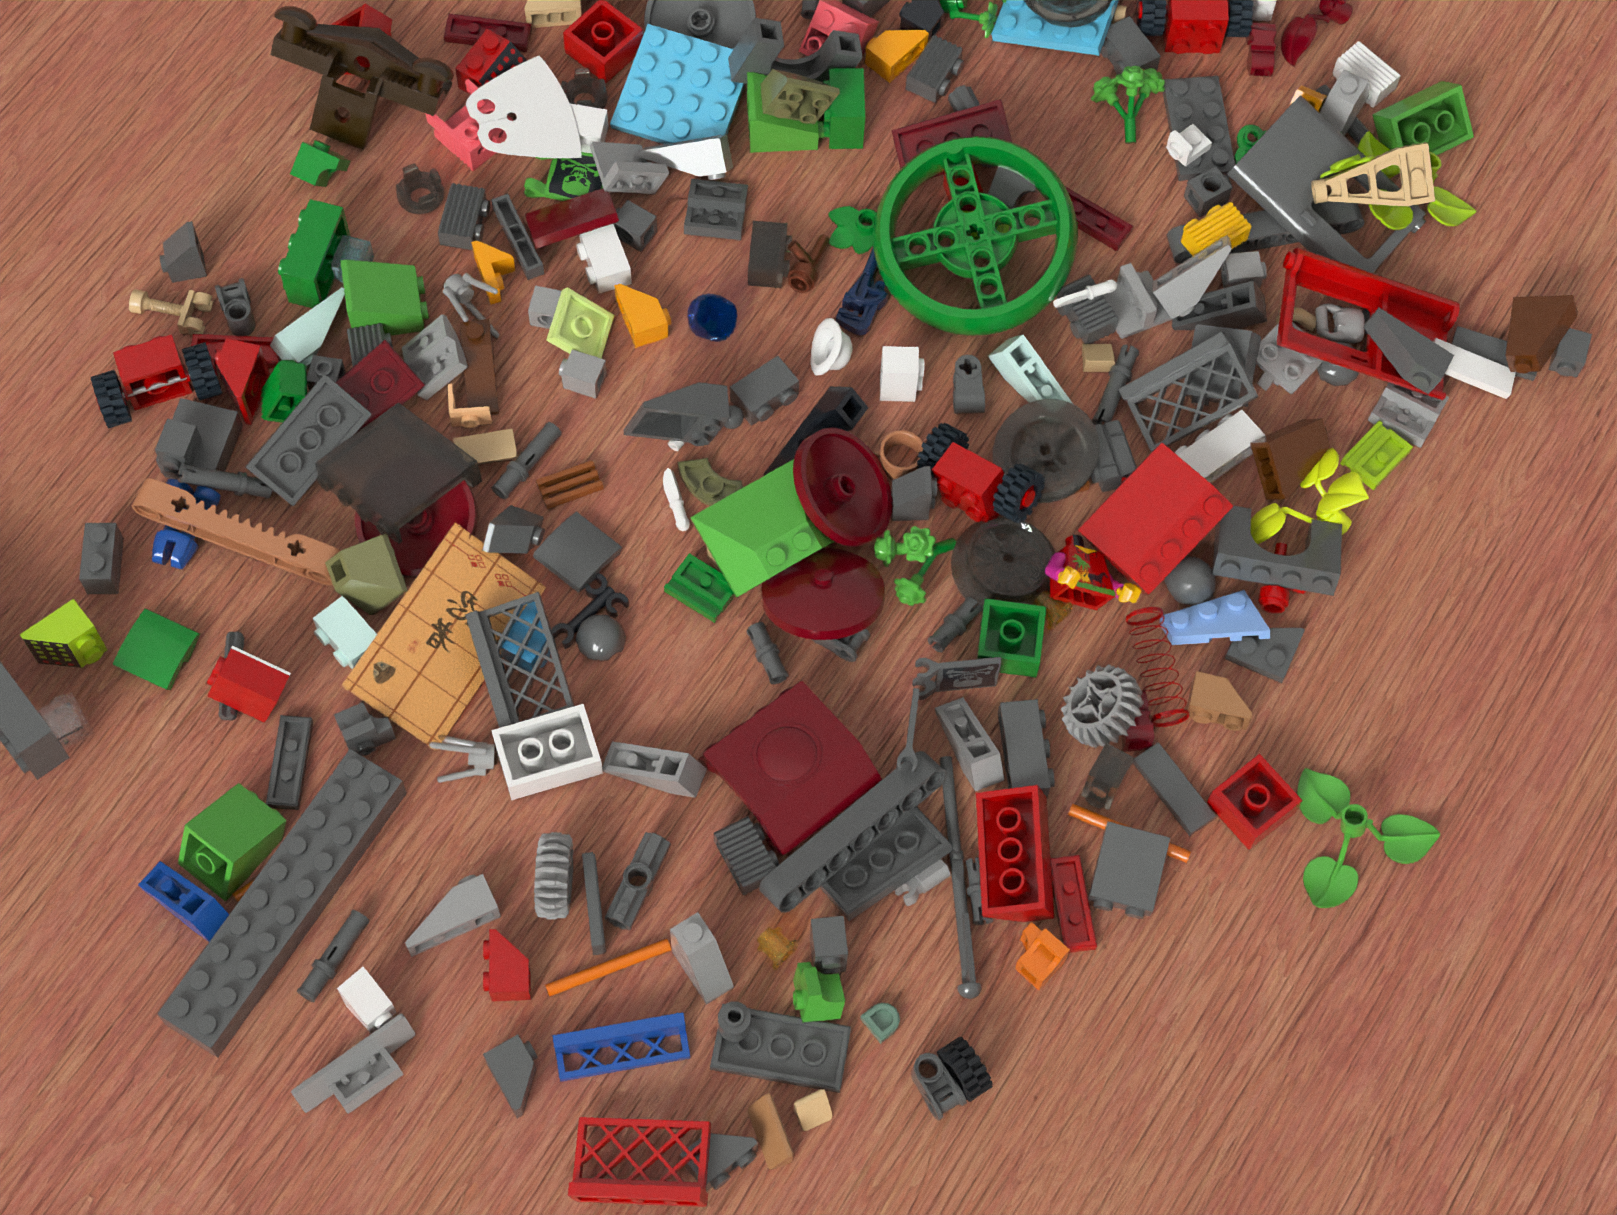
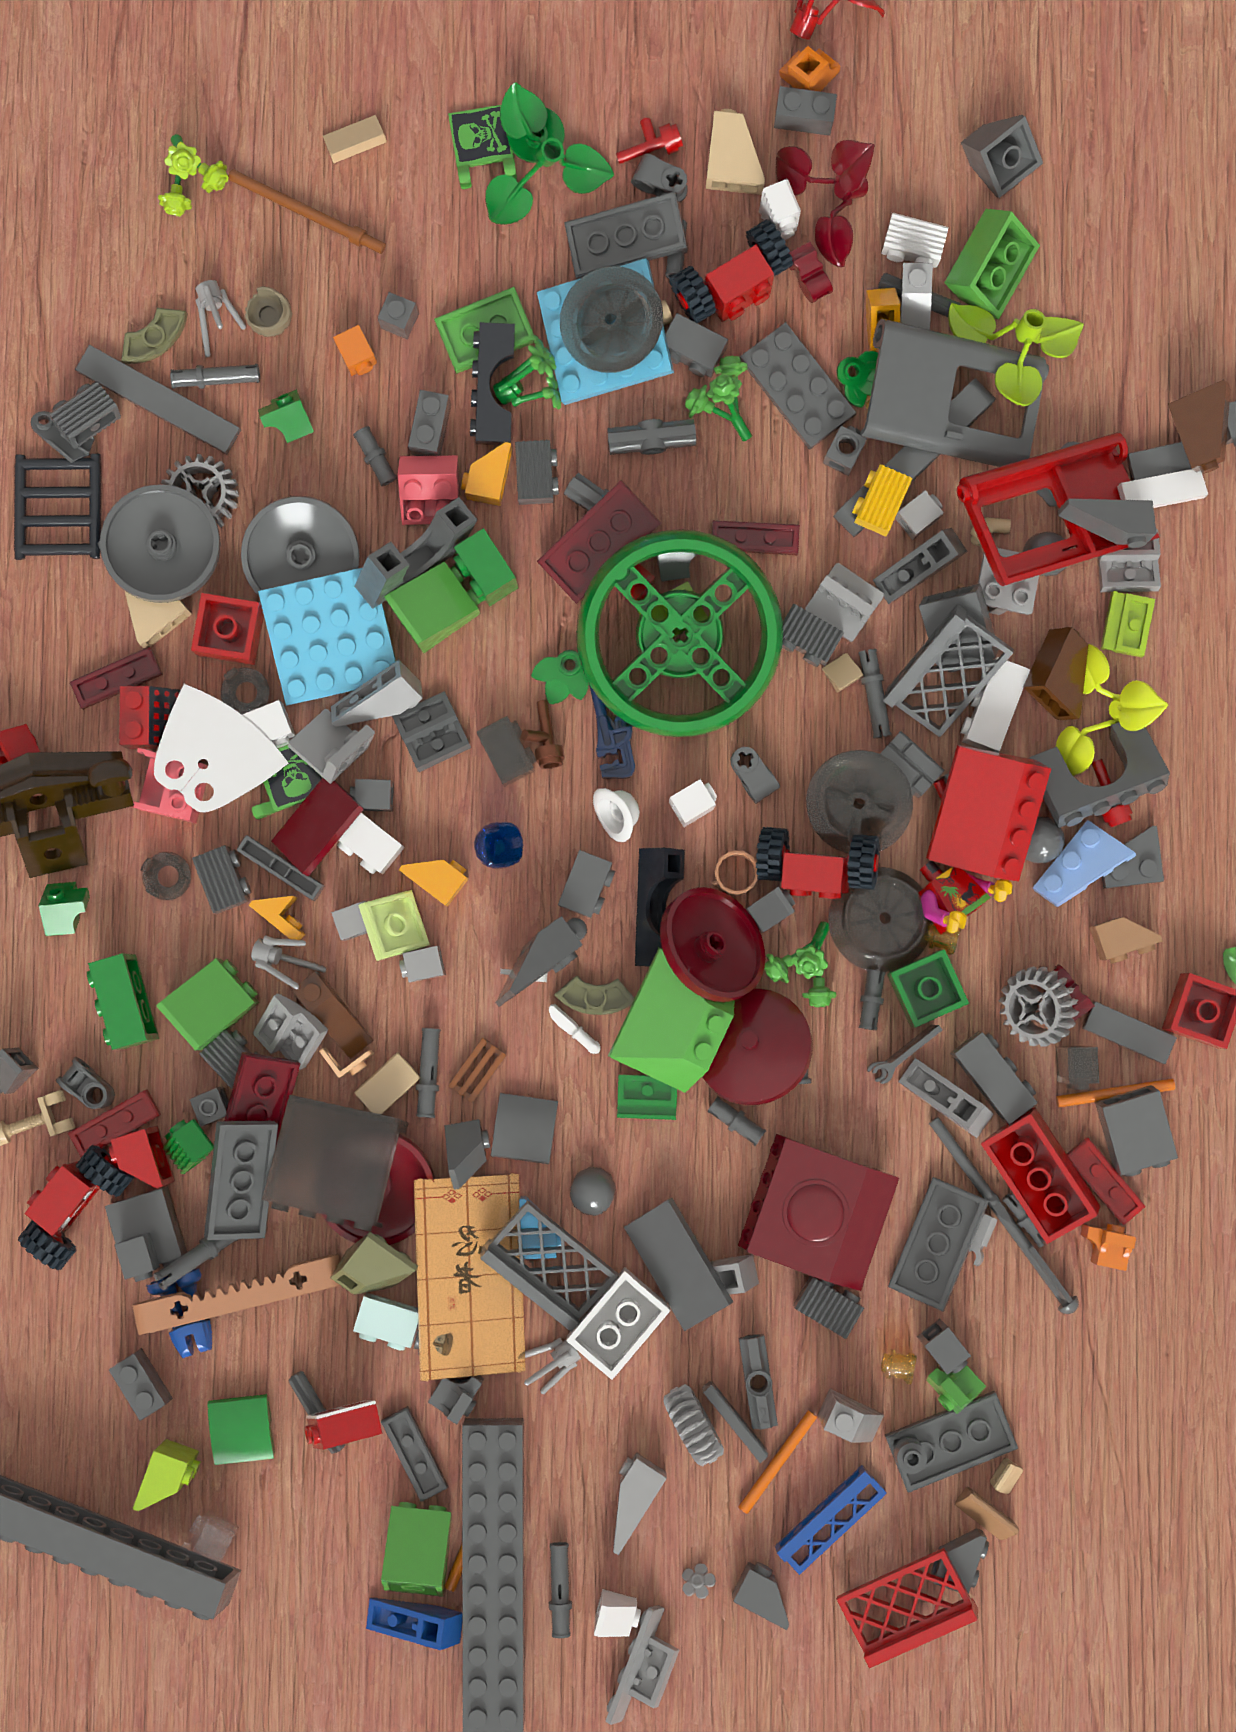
camera: 25 degrees left, 20 degrees up
(307, 333) = (168, 1077): light aqua slope -> none
(351, 249) = (155, 981): clear light blue brick -> none
(462, 1026) = (698, 1581): none -> light grey plant
(508, 970) = (704, 1516): red slope -> none
(602, 596) = (571, 1152): black bar -> none
(634, 734) = (678, 1264): none -> dark grey tile
(796, 96) = (441, 595): olive slope -> none
(851, 832) = (903, 1237): dark grey beam -> none
(881, 1021) = (1015, 1370): sand green tile -> none
(908, 753) = (910, 1154): dark grey flag -> none
(937, 1087) = (1093, 1402): dark grey piece -> none
(965, 1068) = (1107, 1378): black tyre -> none
(1026, 371) = (799, 731): light aqua slope -> none
(1049, 96) = (651, 436): none -> dark grey piece
(1089, 292) = (807, 624): white piece -> none
(1157, 716) = (1025, 898): red piece -> none
(1185, 284) = (888, 561): light grey slope -> none
(1187, 144) = (803, 417): white bracket -> none
(1346, 164) = (967, 365): lime plate -> none
(1347, 322) = (1037, 511): light grey piece -> none
(1414, 173) = (1031, 347): tan plate -> none
(1482, 52) = (1002, 153): none -> dark grey slope

